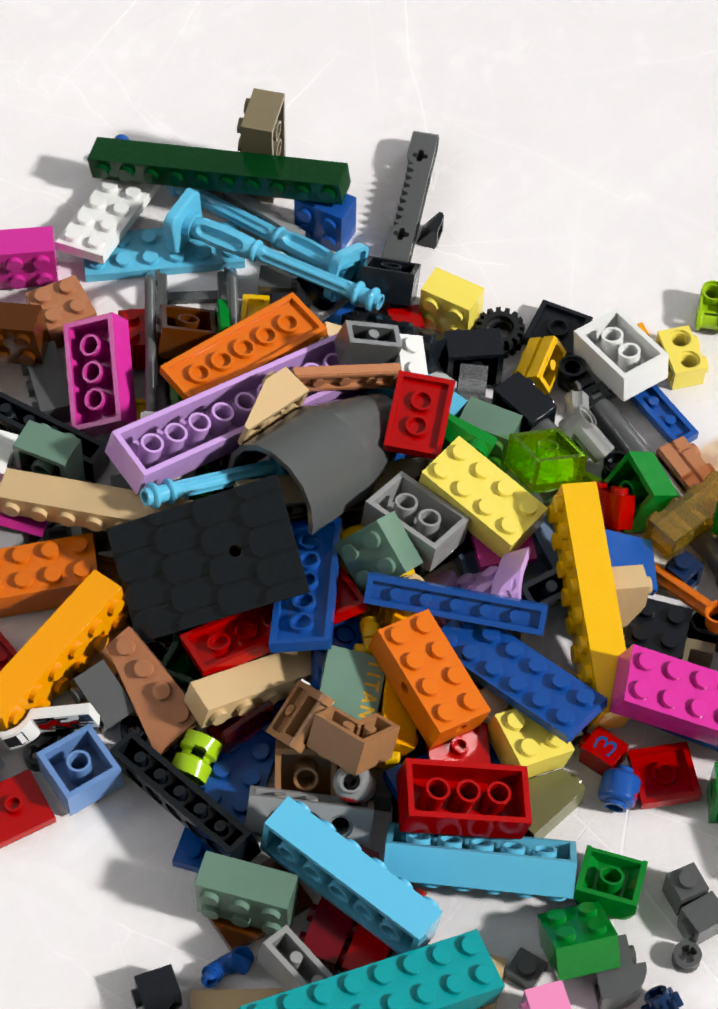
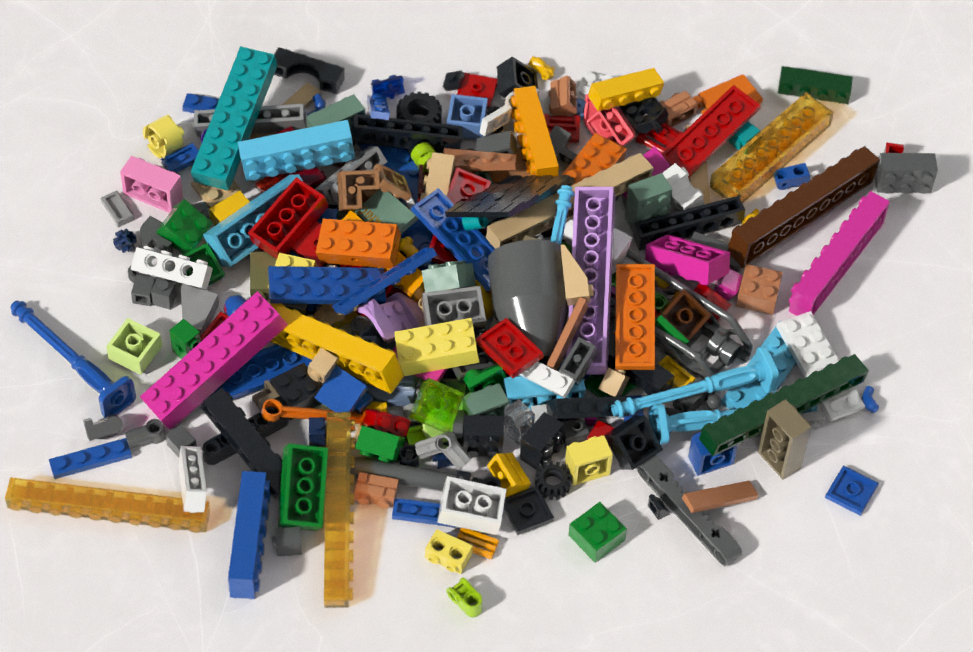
camera: 130 degrees right, 0 degrees up
(22, 629) = (559, 140): none -> dark grey brick
(24, 842) = (453, 80): none -> black plate
(96, 905) = (388, 87): none -> clear blue hips
(122, 806) = (419, 105): none -> black tyre
(173, 864) = (378, 106): none -> blue plate
(182, 285) = (723, 348): none -> dark grey wheel
(231, 101) = (851, 490): none -> blue tile
(248, 277) = (713, 401): none -> dark grey pin
(384, 181) = (720, 496): none -> nougat tile
(495, 919) = (227, 207): none -> yellow brick
(519, 253) = (597, 532): none -> green brick
(656, 891) = (199, 278): none -> white brick
(667, 832) = (198, 306): none -> light grey slope

